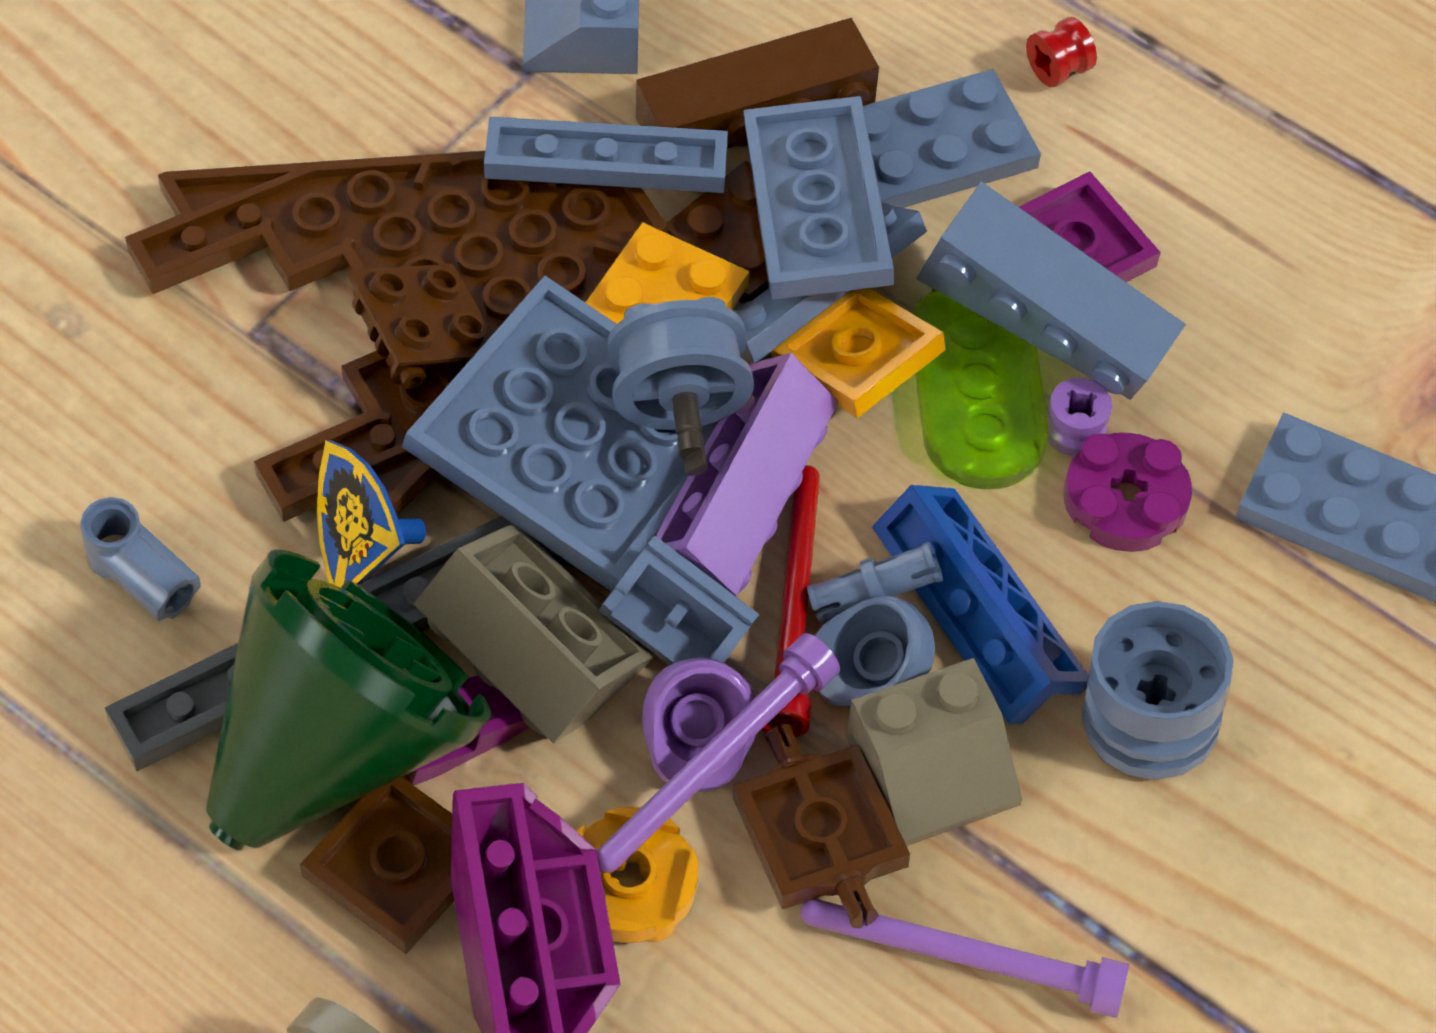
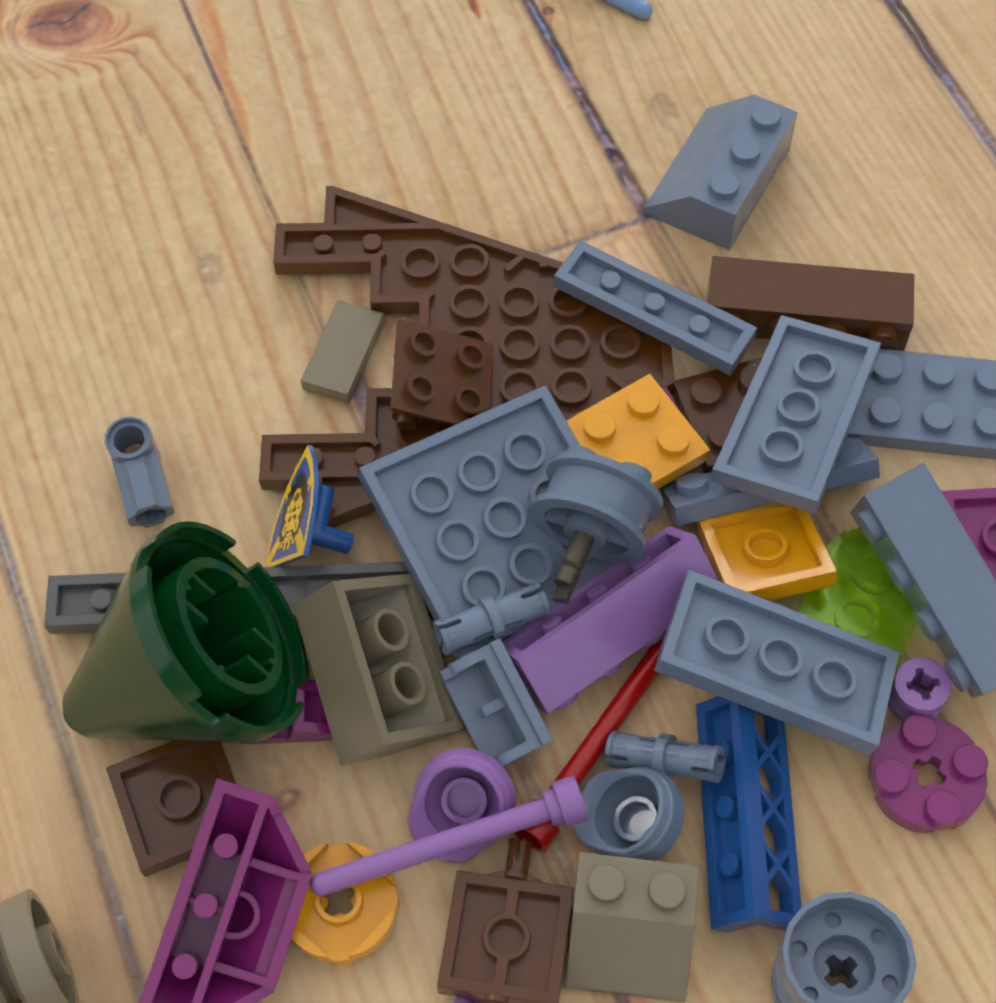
camera: 35 degrees right, 5 degrees up
(283, 343) = (343, 351): none -> dark tan tile
(631, 523) = (491, 618): none -> sand blue pin
(936, 439) = (778, 662): none -> sand blue plate

